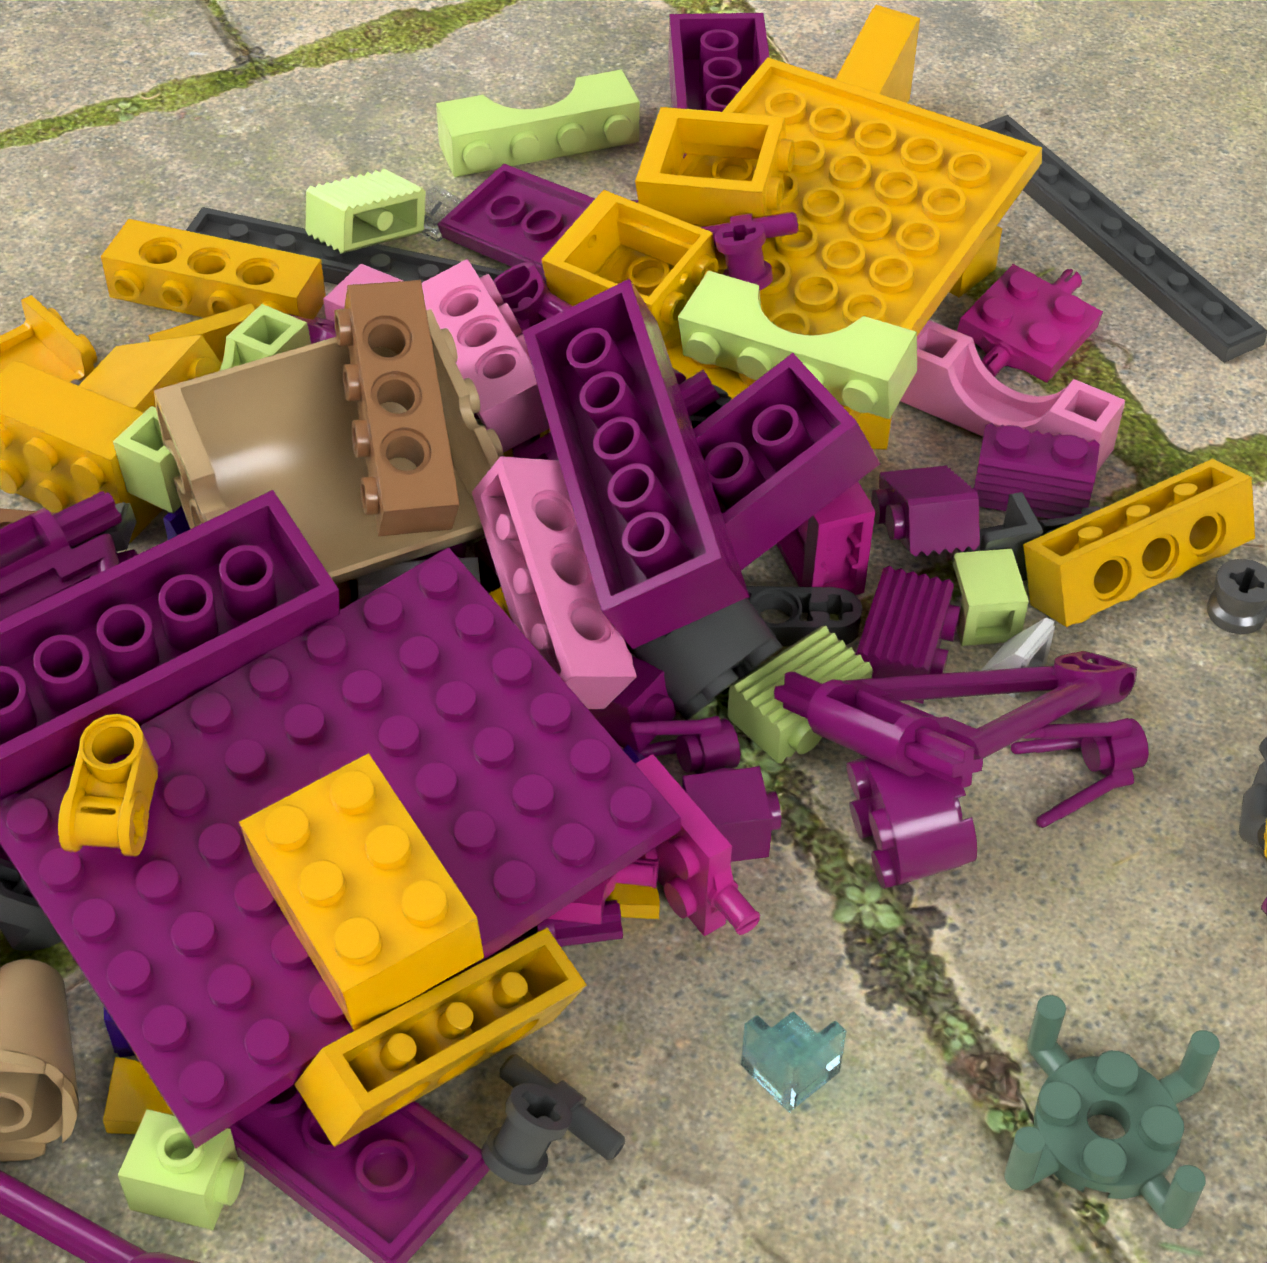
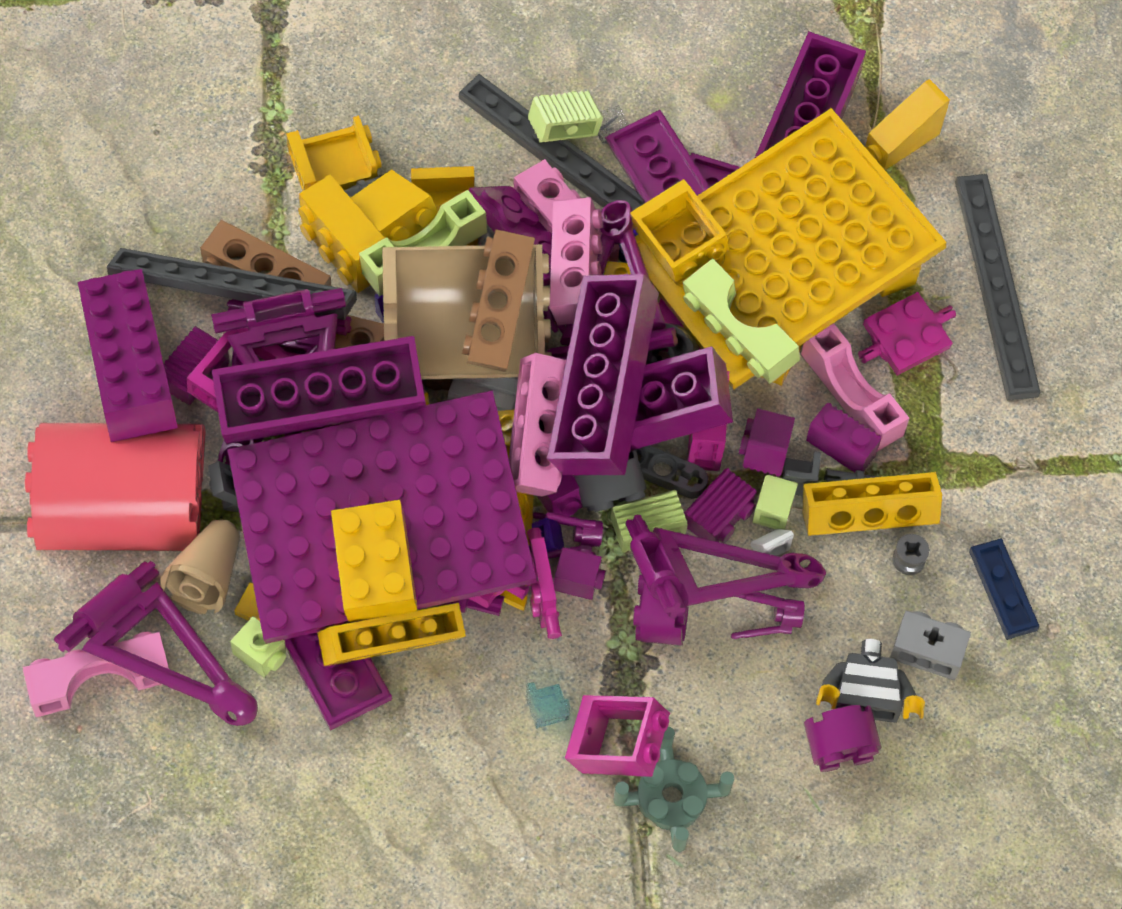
camera: 20 degrees right, 15 degrees up
(104, 800) = (282, 471): yellow piece -> none
(208, 273) = (458, 118): yellow brick -> none
(485, 135) = (664, 80): yellowish green arch -> none
(536, 1116) = (418, 687): dark grey piece -> none
(720, 134) = (730, 166): yellow window -> none
(742, 243) = (743, 241): magenta piece -> none
(901, 1016) = (594, 716): none -> dark pink window

